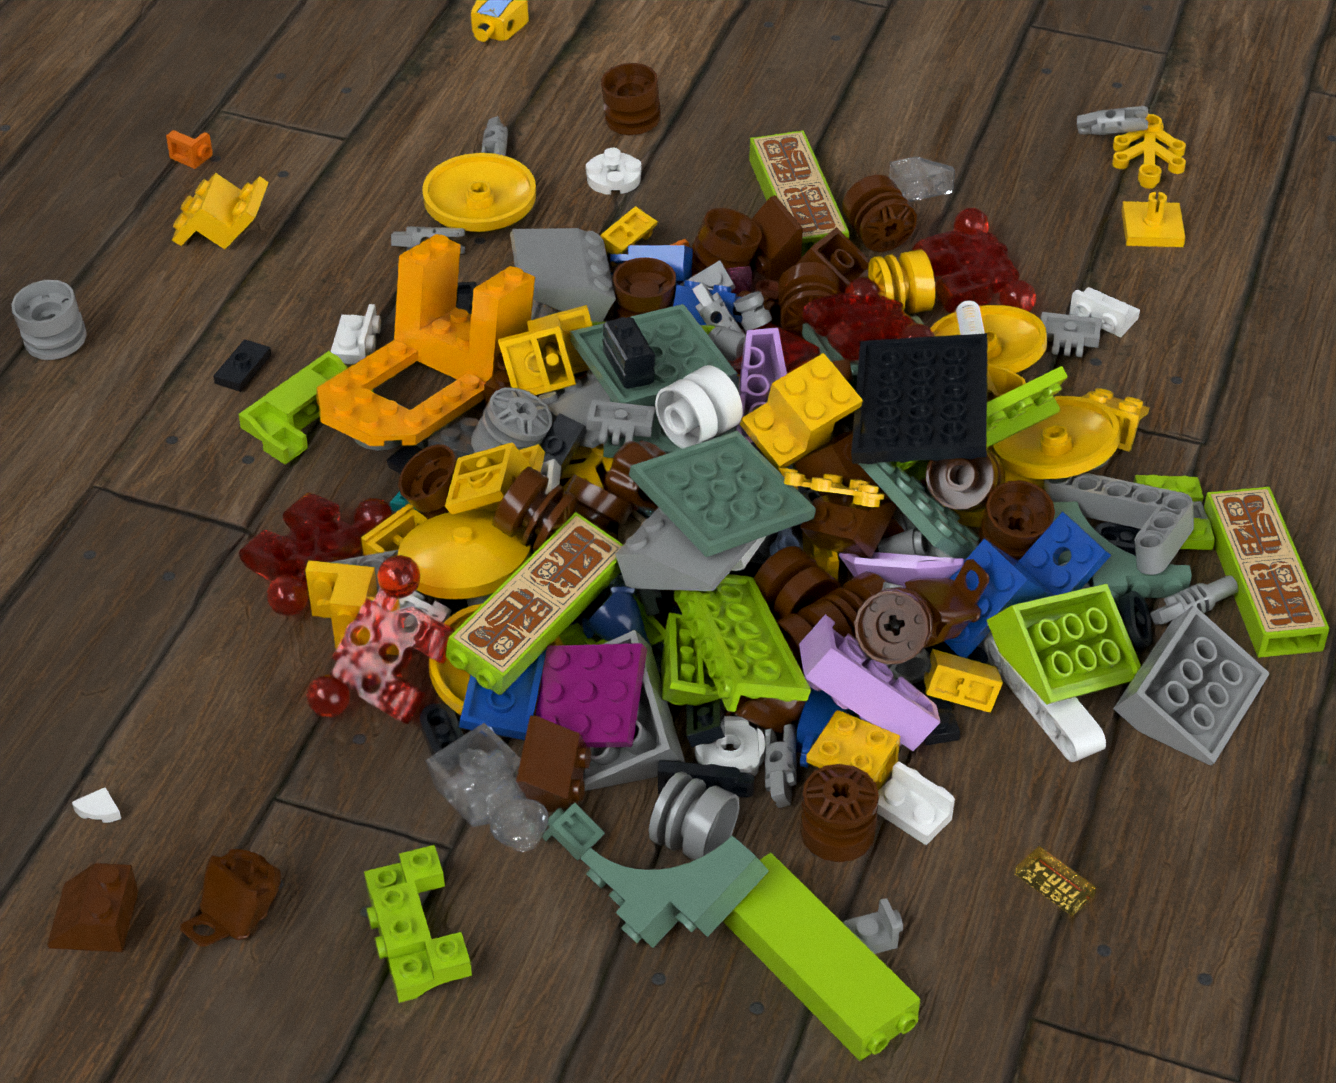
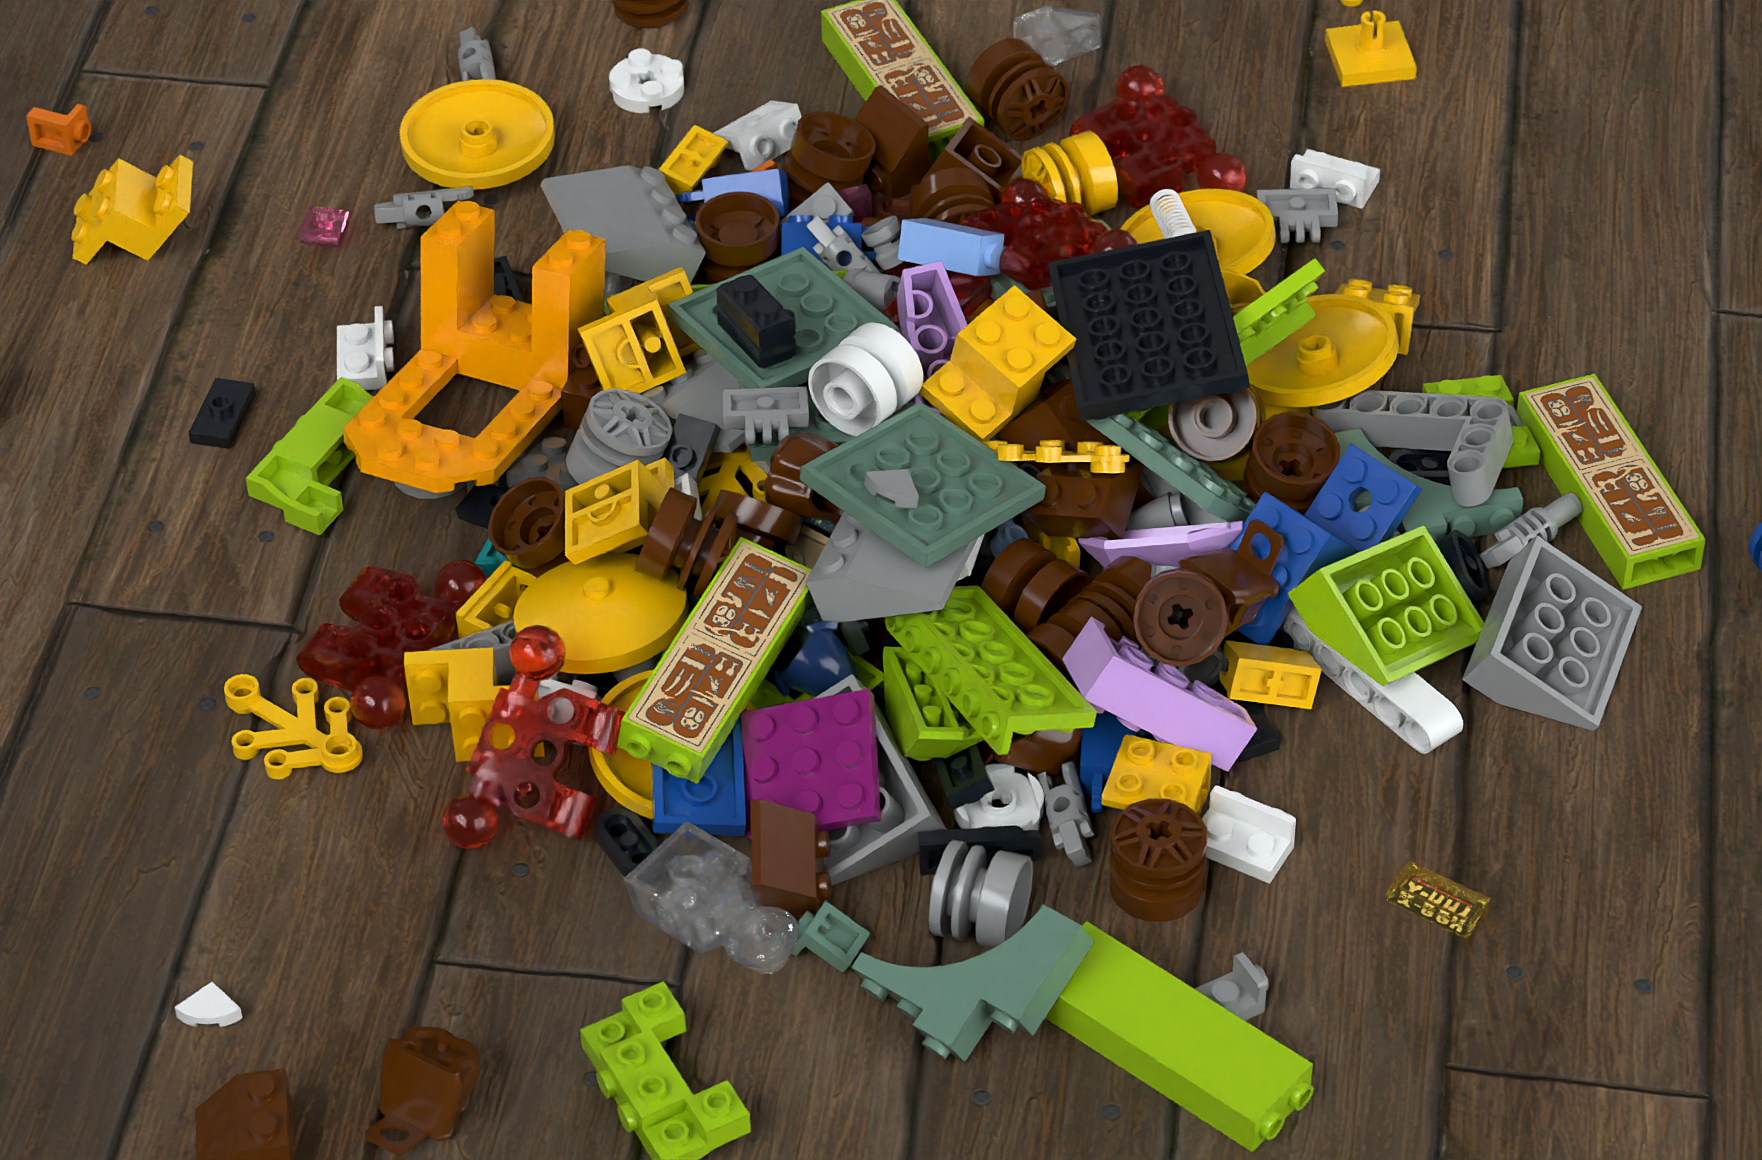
camera: 10 degrees left, 0 degrees up
(246, 627) = (334, 752): none -> yellow plant
(353, 242) = (324, 226): none -> clear pink plate
(684, 219) = (762, 133): none -> white bracket
(696, 491) = (893, 485): none -> light grey tile
(795, 319) = (957, 246): none -> light blue brick

